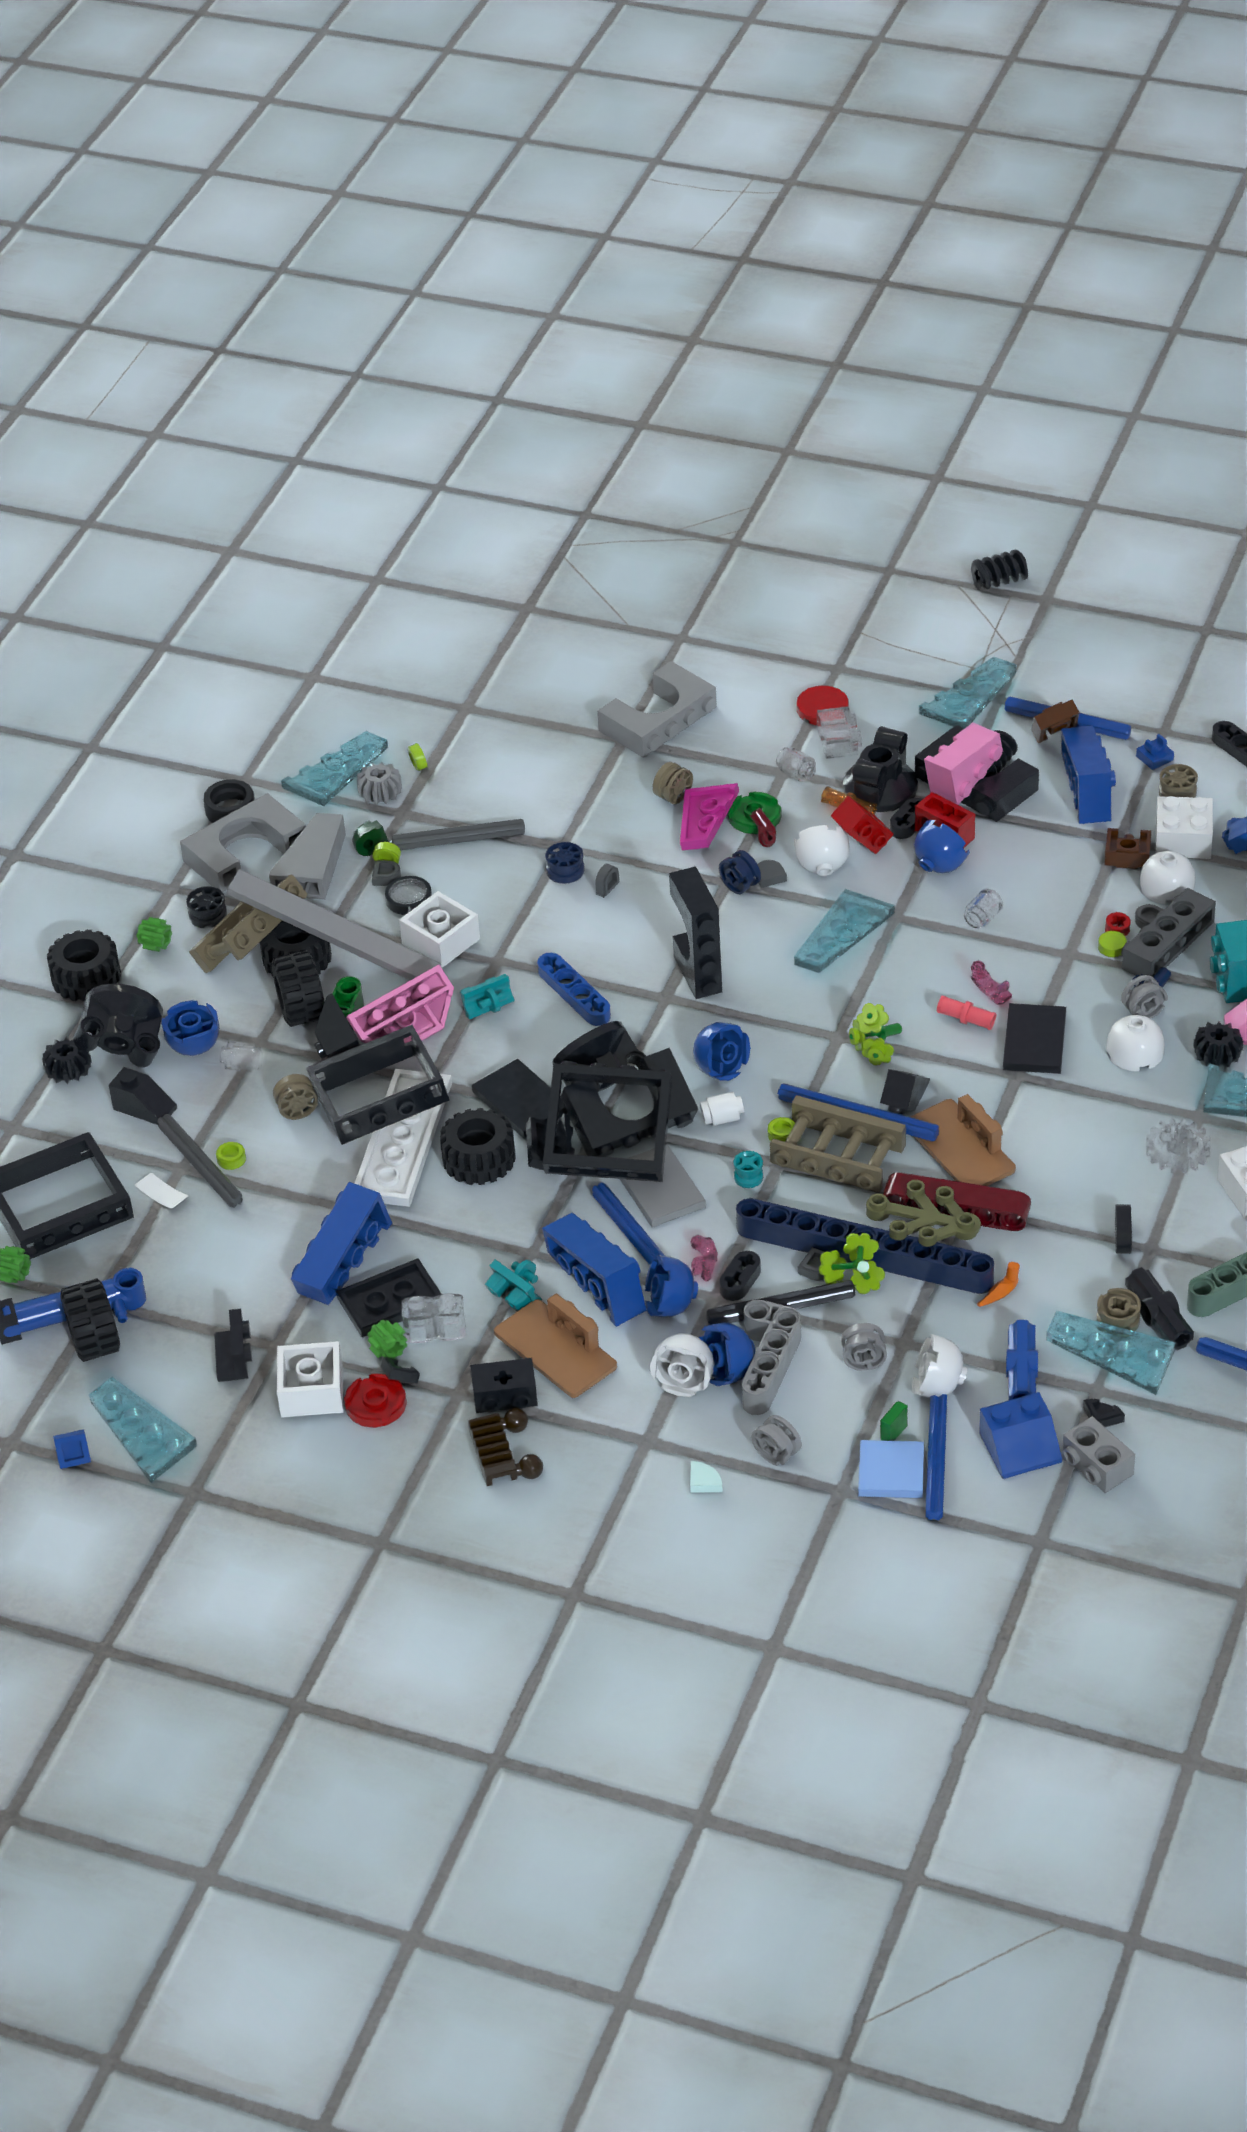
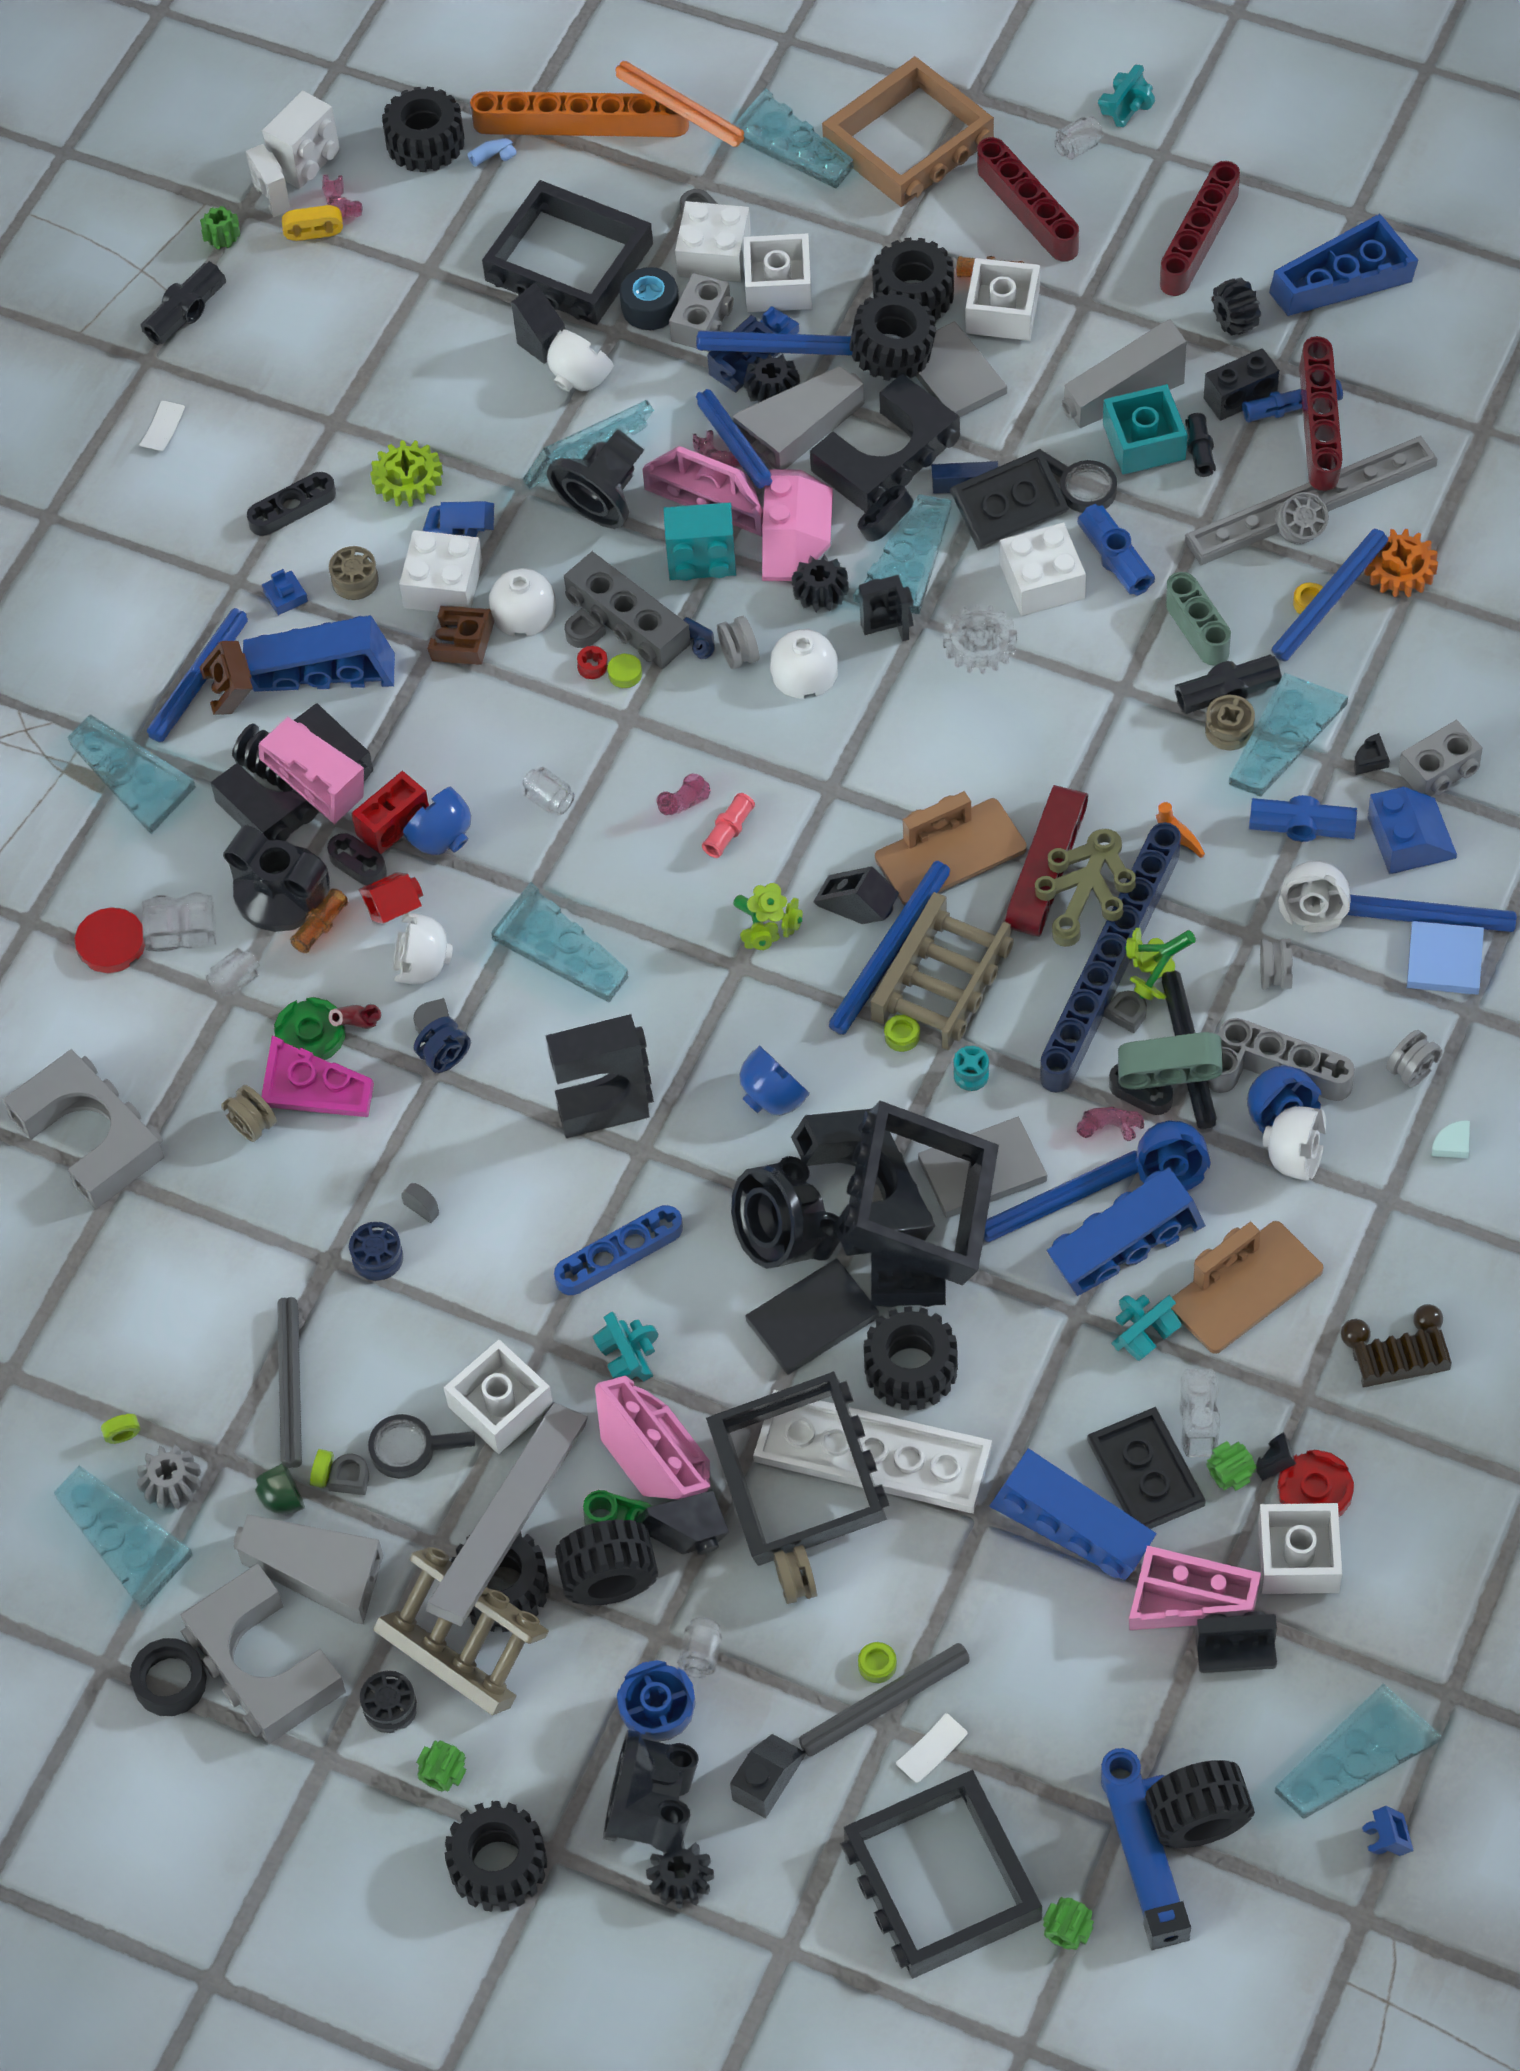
camera: 85 degrees left, 15 degrees up
(275, 1312) = (1185, 1588): none -> bright pink wedge
(504, 1385) = (1309, 1358): black brick -> none
(722, 1109) = (864, 1086): white brick -> none
(751, 1272) = (1170, 1060): none -> sand green beam
(894, 1422) = (1387, 945): green tile -> none
(1034, 1038) = (776, 763): black tile -> none
(1123, 1229) = (1104, 704): black beam -> none
(1191, 1077) = (885, 606): none -> black bracket

